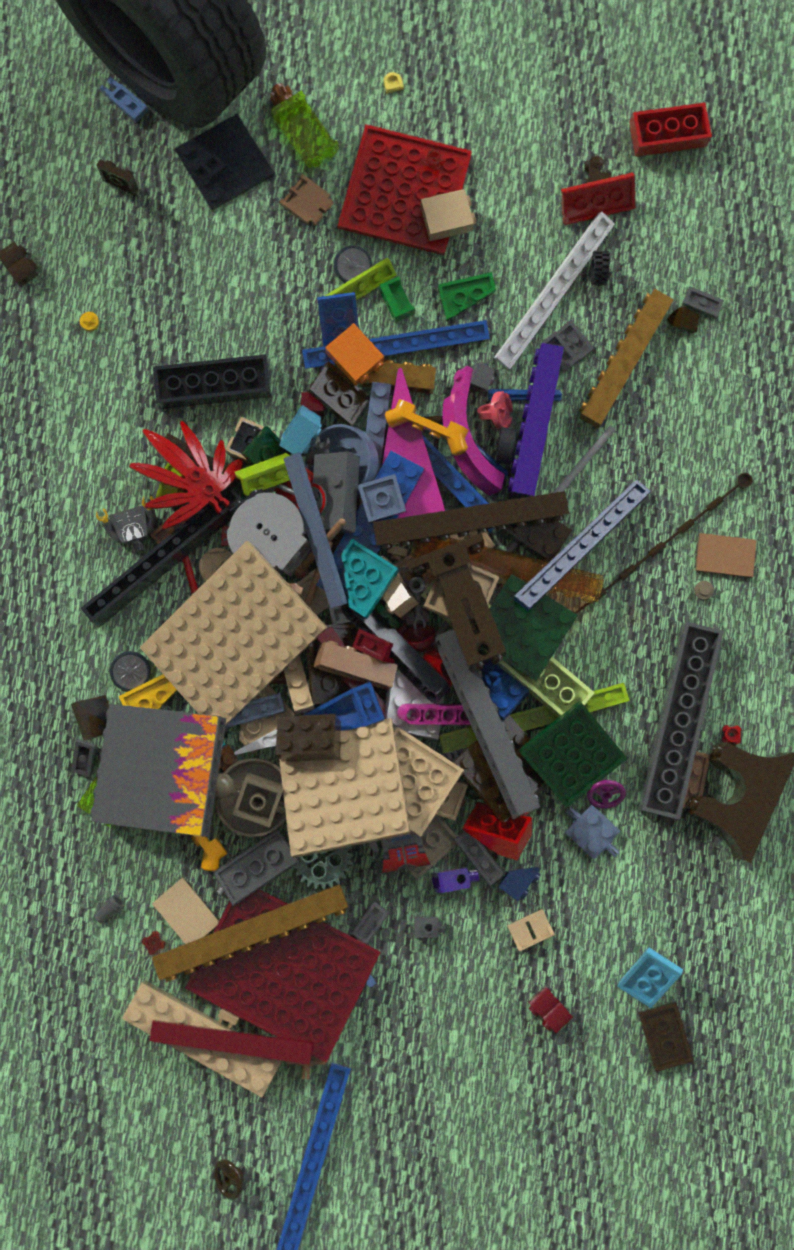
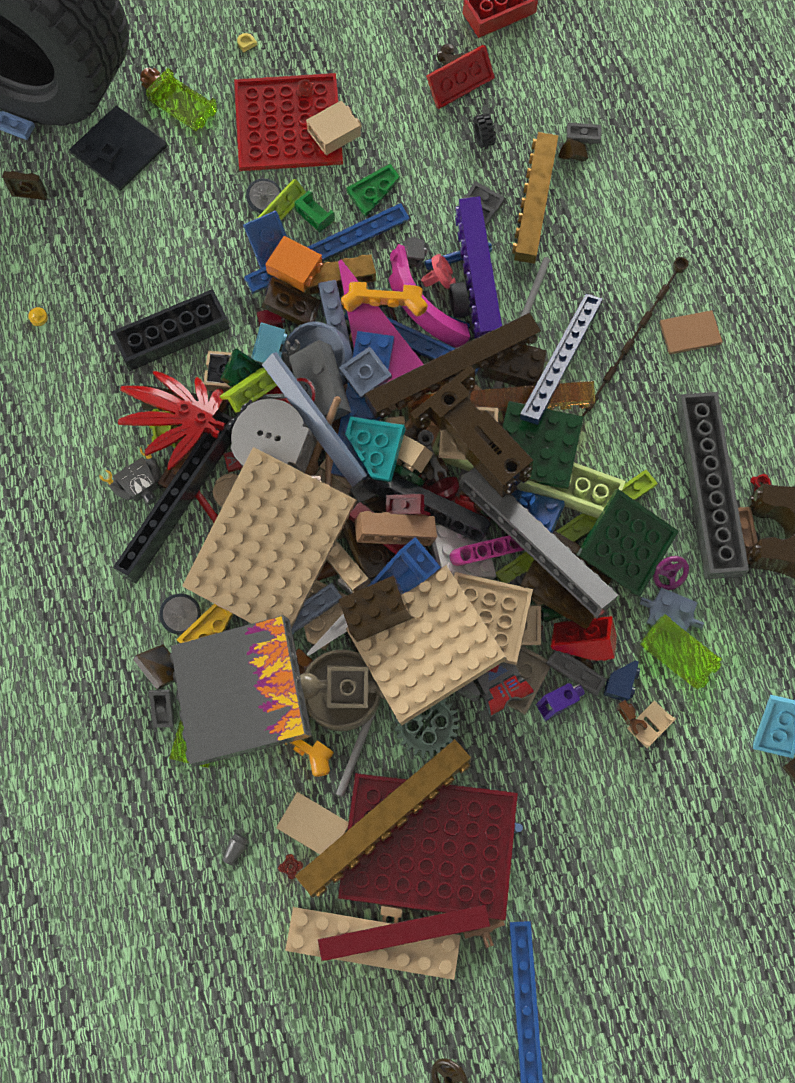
camera: 15 degrees left, 10 degrees down
(256, 867) = (366, 755): dark grey tile -> none
(307, 201) = (205, 157): medium nougat plate -> none
(370, 923) = (496, 770): dark grey plate -> none
(427, 926) = (552, 755): dark grey brick -> none
(513, 911) = (628, 713): none -> reddish brown plate
(550, 1009) = (700, 793): dark red brick -> none
(554, 291) = (450, 163): white plate -> none
(585, 873) = (681, 652): none -> clear neon green panel
(704, 590) = (684, 367): dark tan plate -> none

